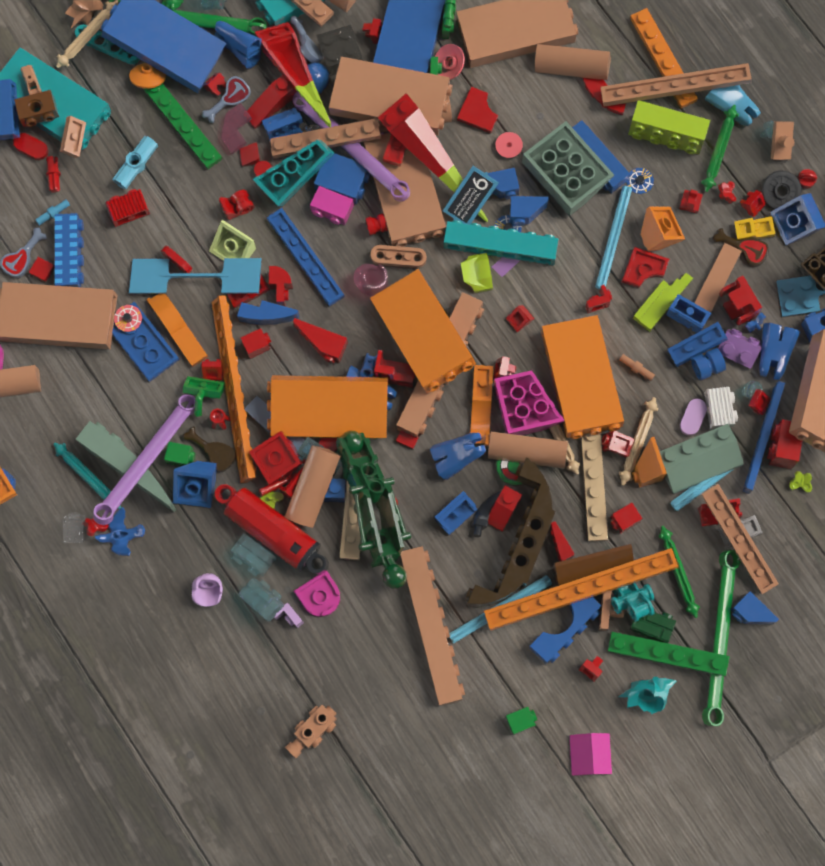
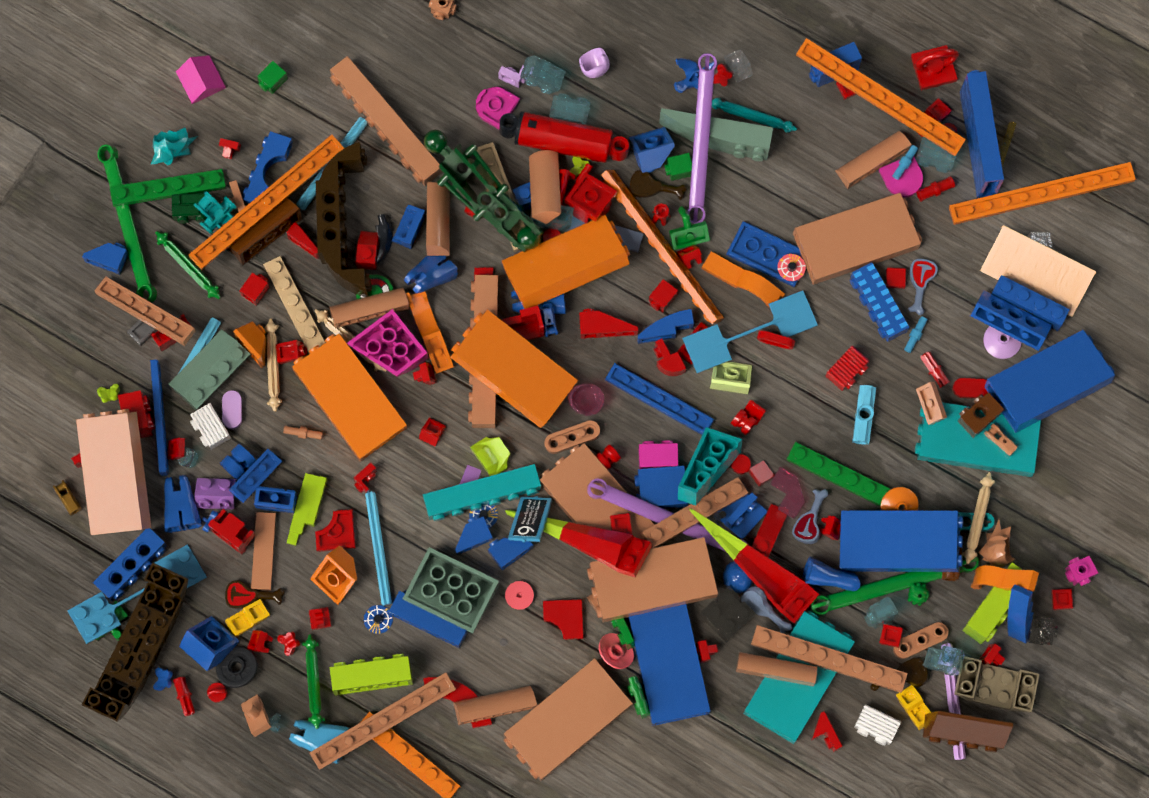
camera: 150 degrees right, 0 degrees up
(427, 501) = (438, 220): none -> nougat brick

